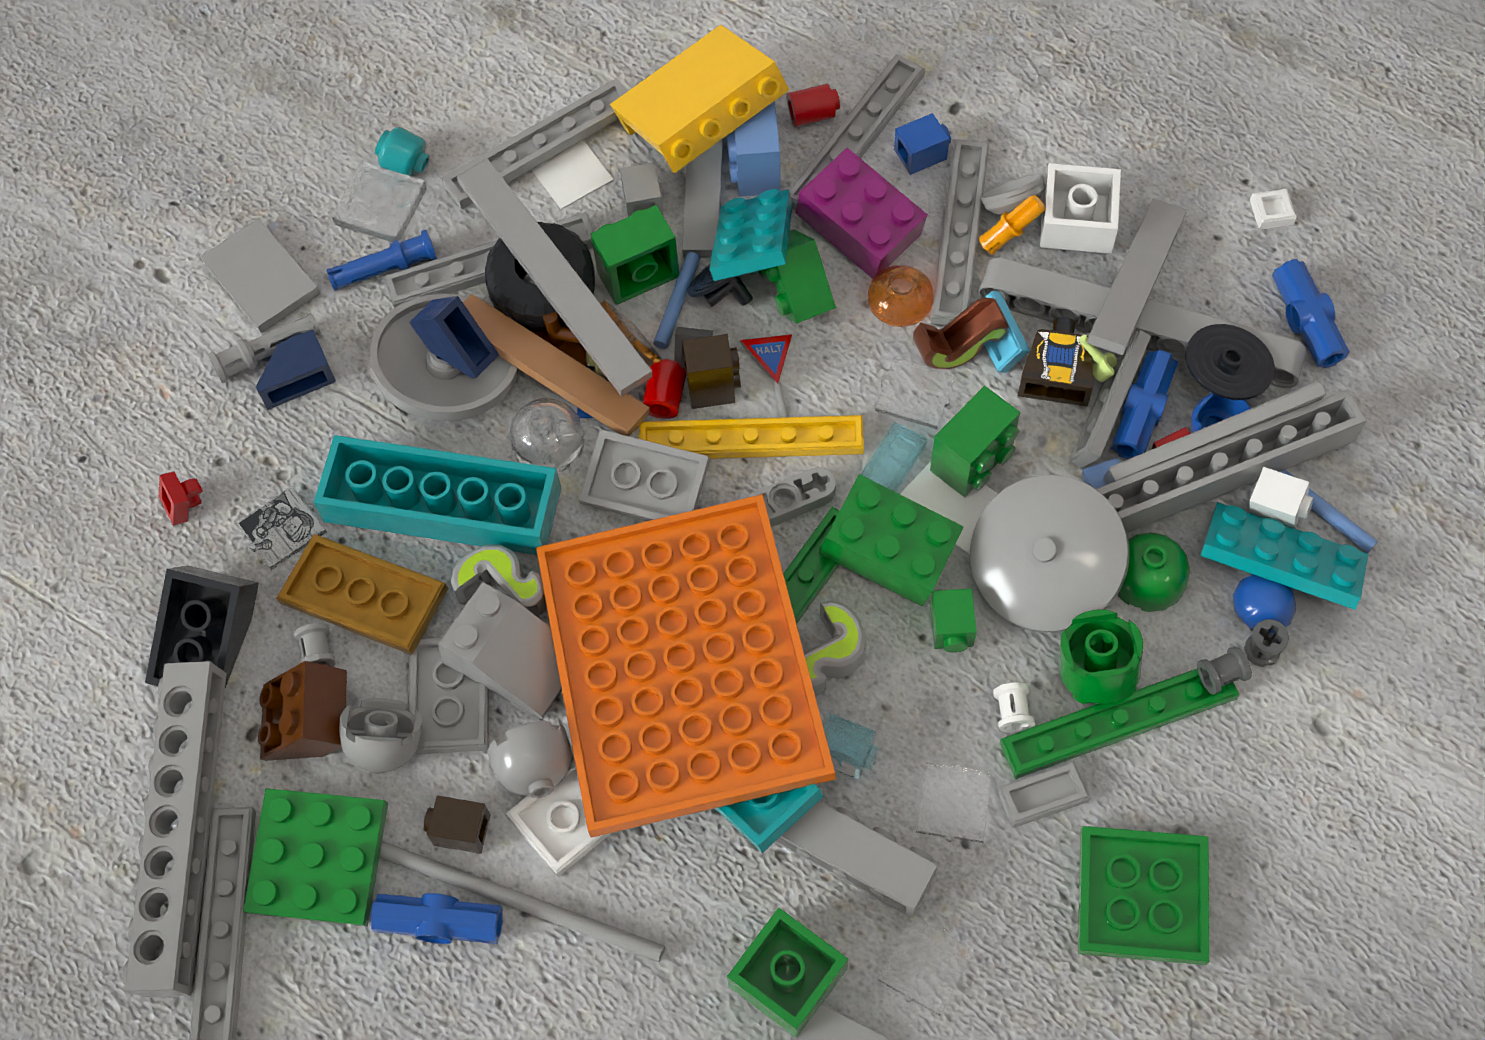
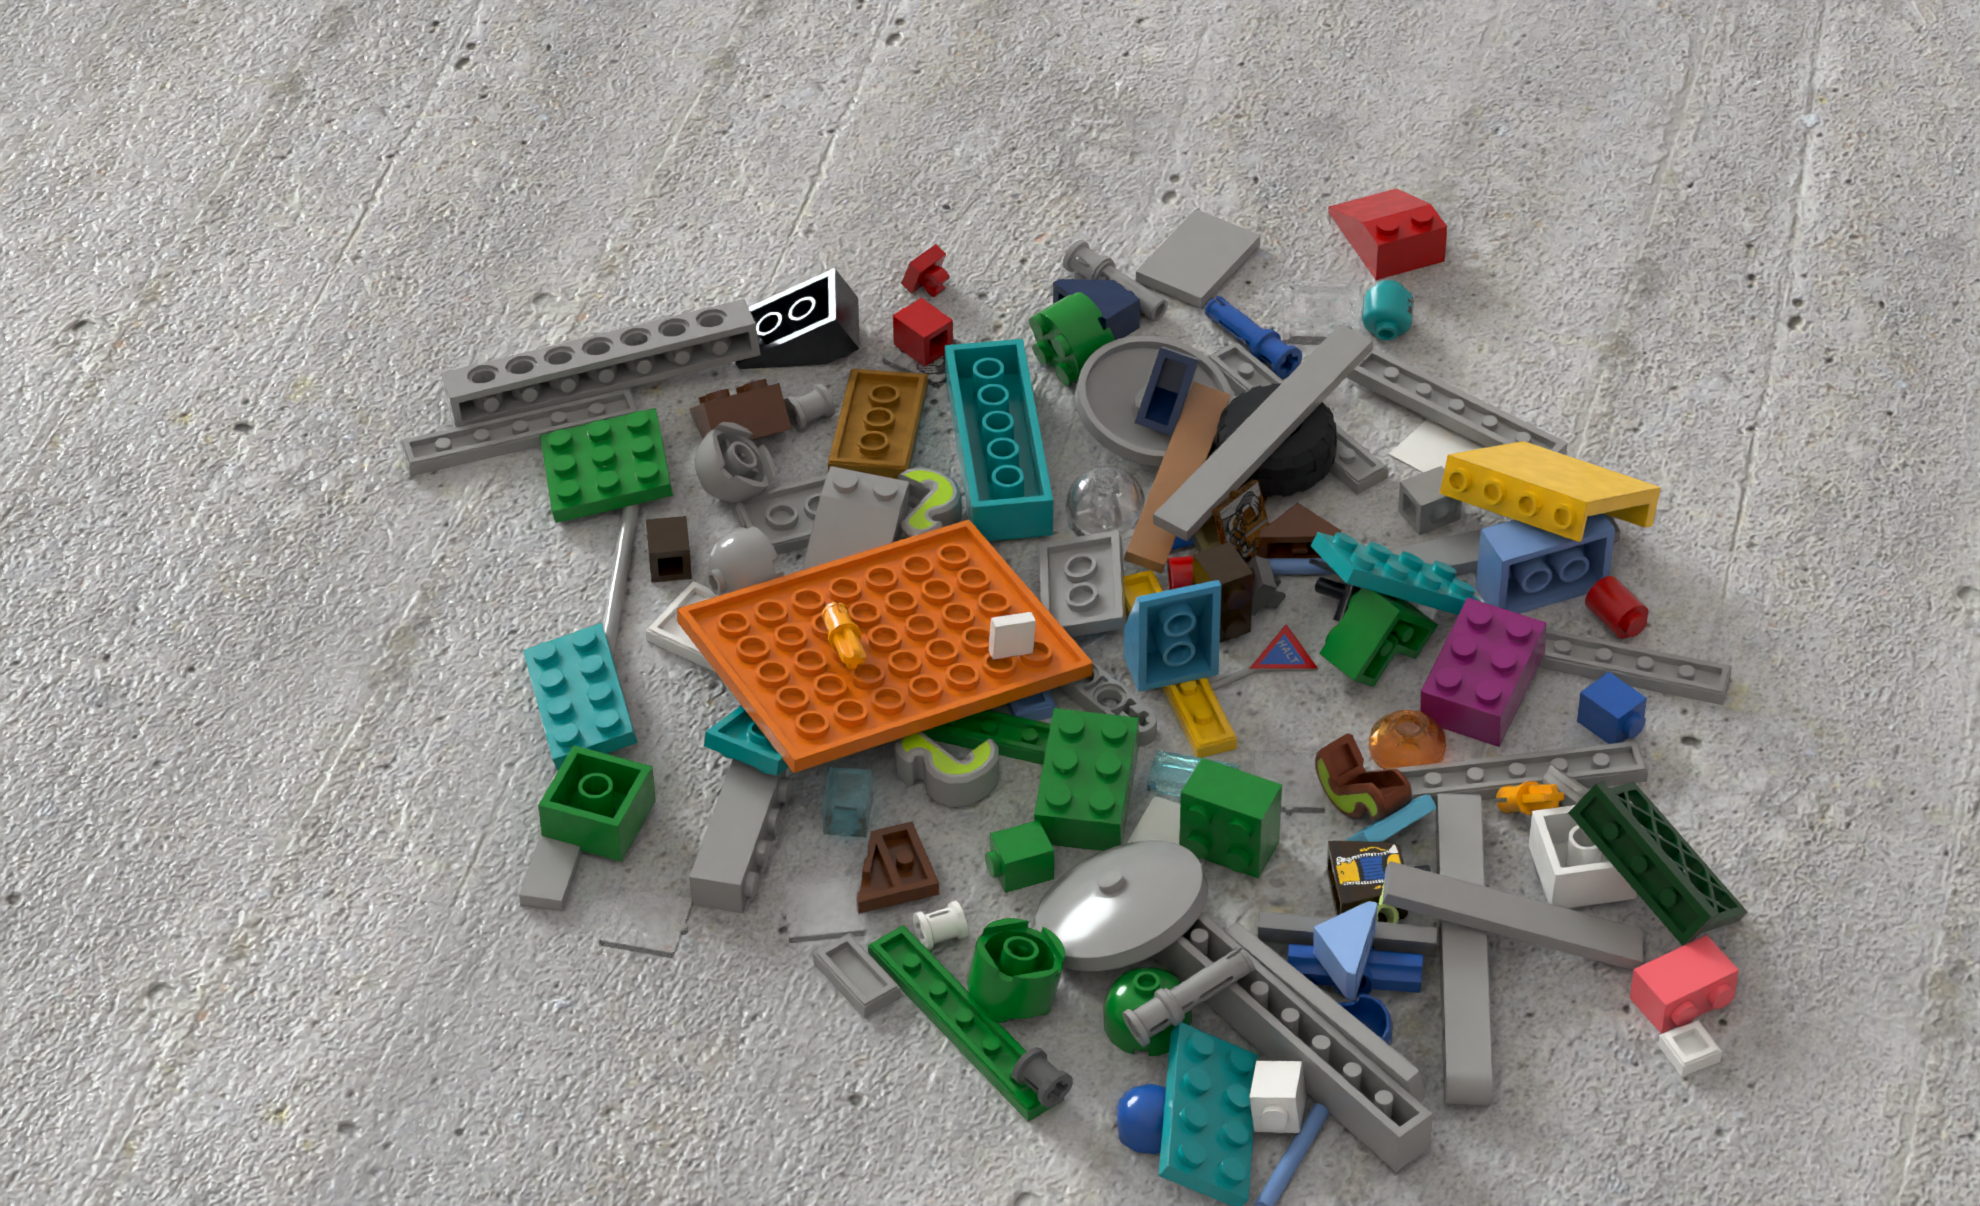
camera: 70 degrees right, 20 degrees down
(263, 521) = (922, 331): none -> red brick
(296, 121) = (1392, 232): none -> red slope
(336, 397) = (1068, 335): none -> green brick
(437, 918) = (574, 560): blue piece -> none
(629, 957) = (579, 694): none -> teal plate
(635, 254) = (1341, 493): green brick -> none
(649, 296) = (1293, 534): none -> reddish brown slope
(686, 687) = (844, 635): none -> light orange axle
(727, 546) = (1012, 635): none -> white tile
(761, 420) = (1174, 636): none -> dark azure slope
(934, 728) = (895, 869): none -> reddish brown wing
(1121, 159) = (1632, 844): none -> dark green fence
(1144, 895) = (771, 1068): green plate -> none
(1158, 395) = (1345, 944): none -> light blue slope
(1189, 545) = (1171, 1005): none -> light grey pin
(1220, 189) = (1684, 984): none -> coral brick
(1230, 362) = (1428, 1011): black shield -> none
(1277, 641) = (1096, 1112): dark grey bush -> none
(1310, 313) = (1548, 1097): blue piece -> none

